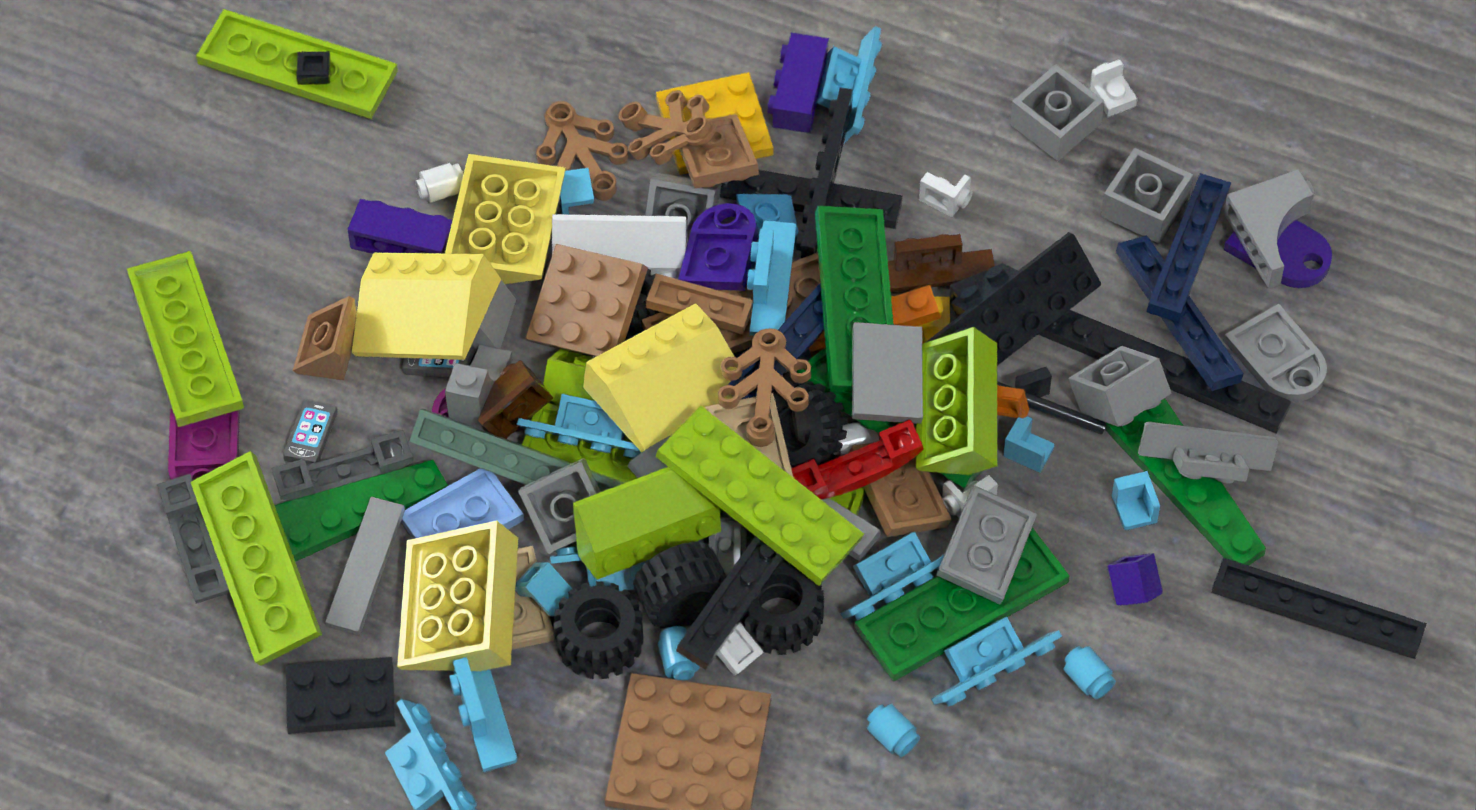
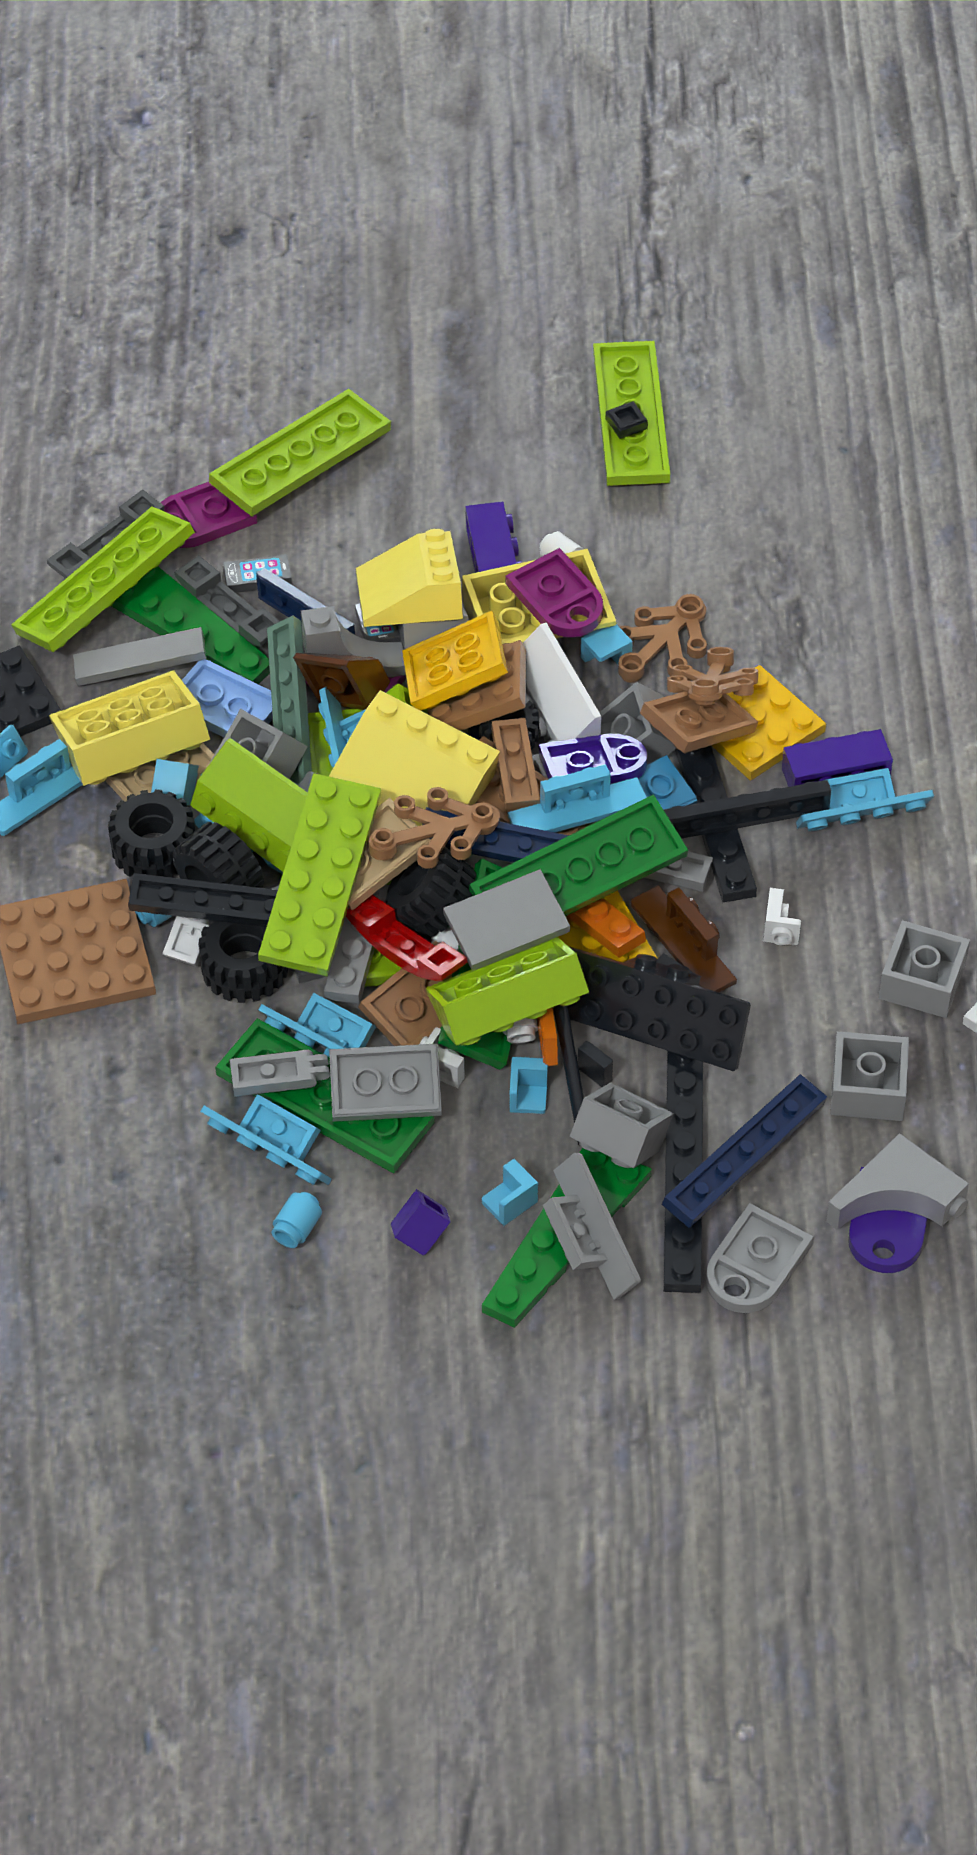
camera: 65 degrees right, 5 degrees down
(327, 341) = (351, 549): medium nougat slope -> none
(389, 408) = (288, 598): none -> dark blue tile
(514, 195) = (556, 592): none -> magenta tile
(552, 303) = (454, 662): none -> yellow plate
(893, 730) = (160, 1089): medium azure brick -> none
(933, 625) = (278, 1072): none -> light grey hinge
(1188, 247) = (821, 1129): dark blue plate -> none
(1319, 608) = (468, 1389): black plate -> none

